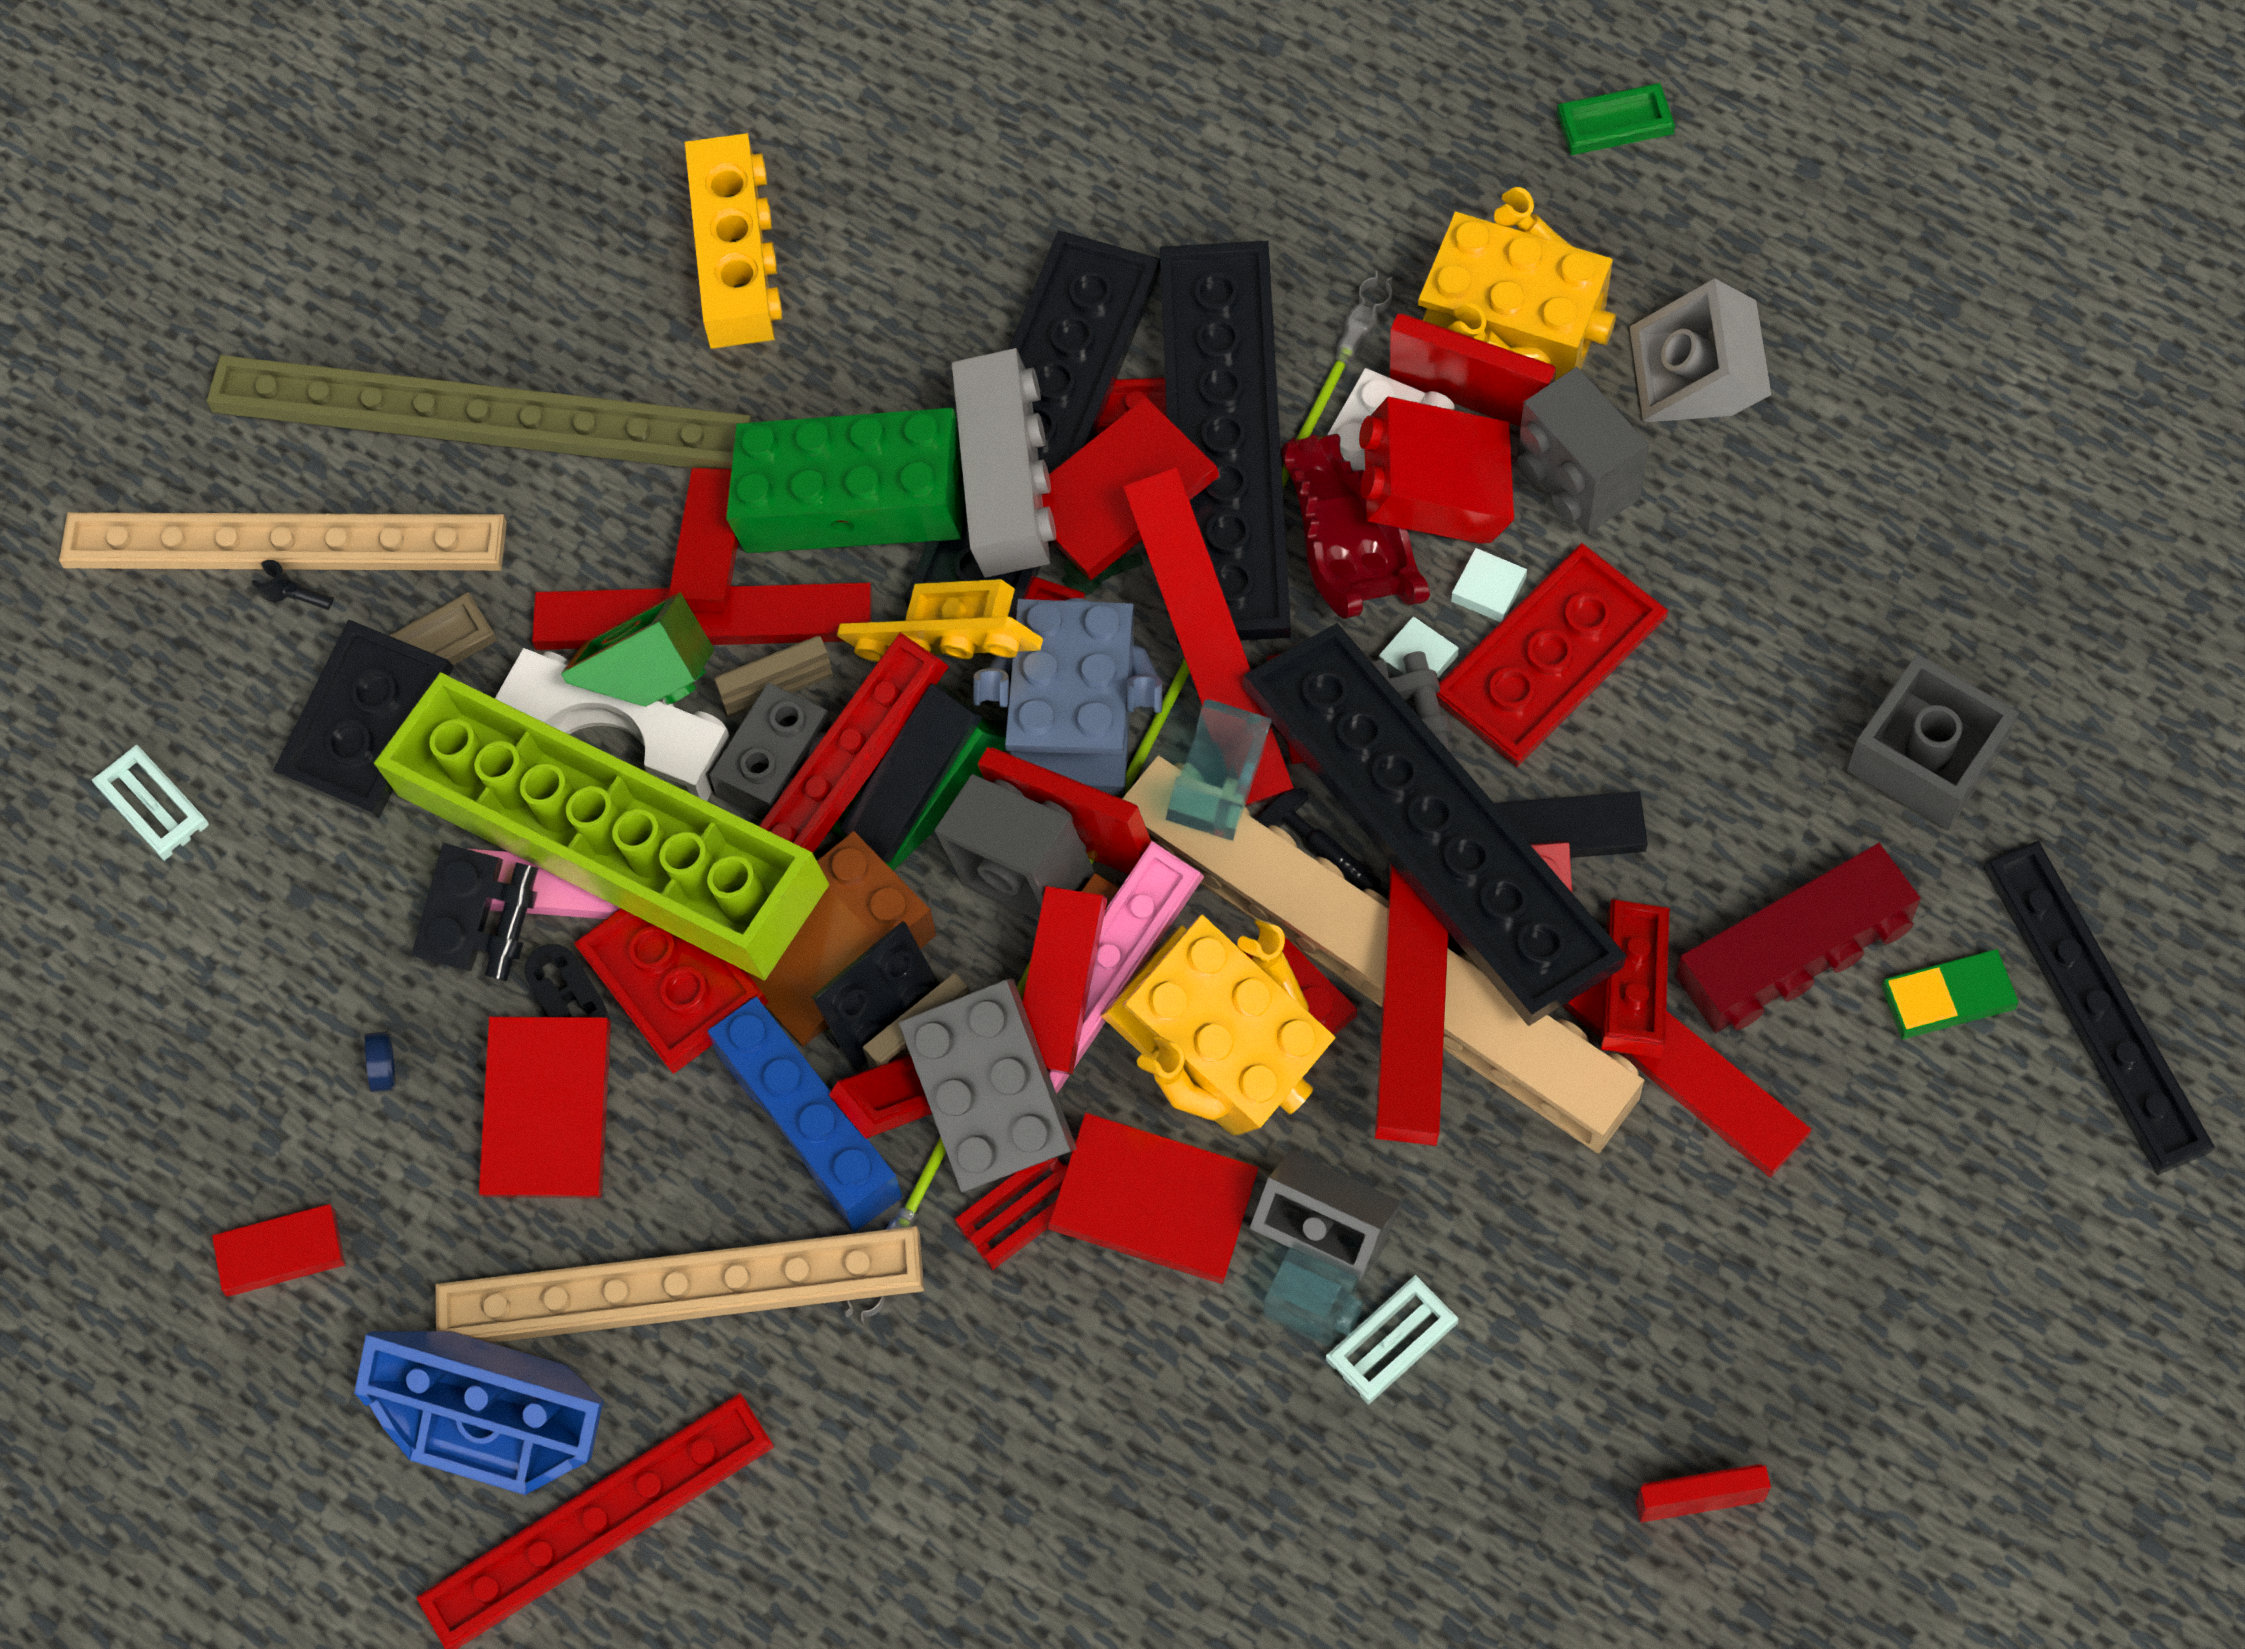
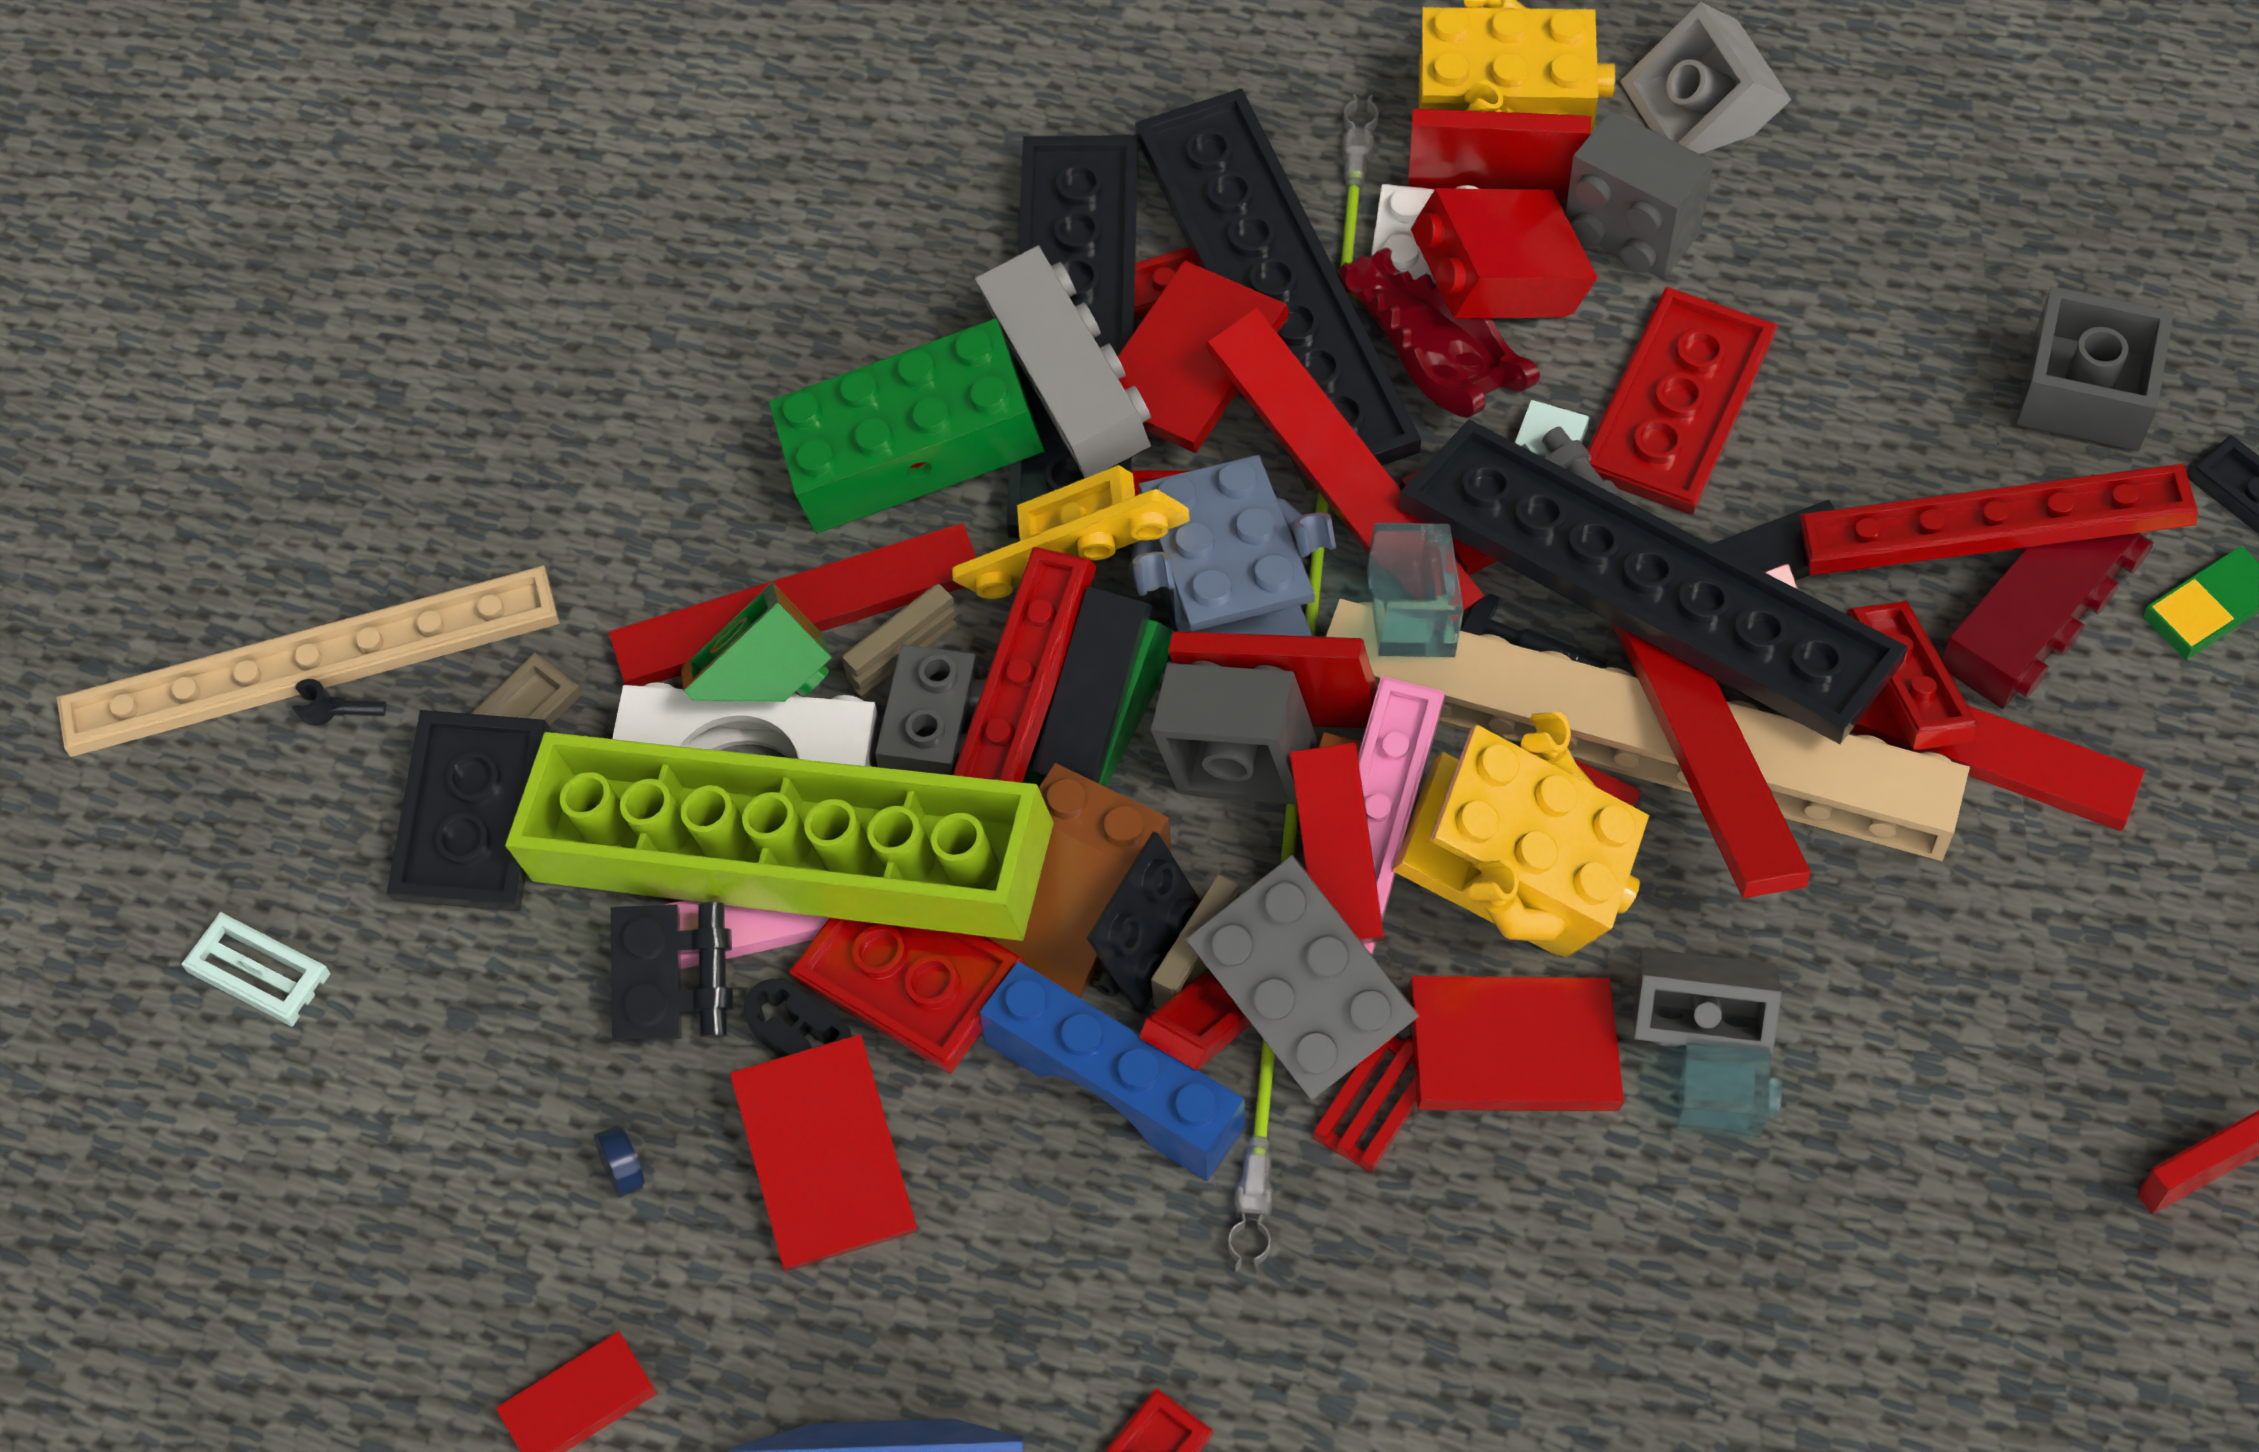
camera: 20 degrees left, 5 degrees down
(474, 413) = (475, 474): olive plate -> none
(683, 1286) = (1046, 1295): tan tile -> none
(705, 543) = (776, 527): red tile -> none
(715, 171) = (687, 237): yellow brick -> none
(1078, 581) = (1184, 460): clear green hand -> none
(1355, 1374) = (1797, 1157): light aqua tile -> none
(1489, 585) = (1591, 351): light aqua tile -> none
(1773, 860) = (1998, 519): none -> red tile

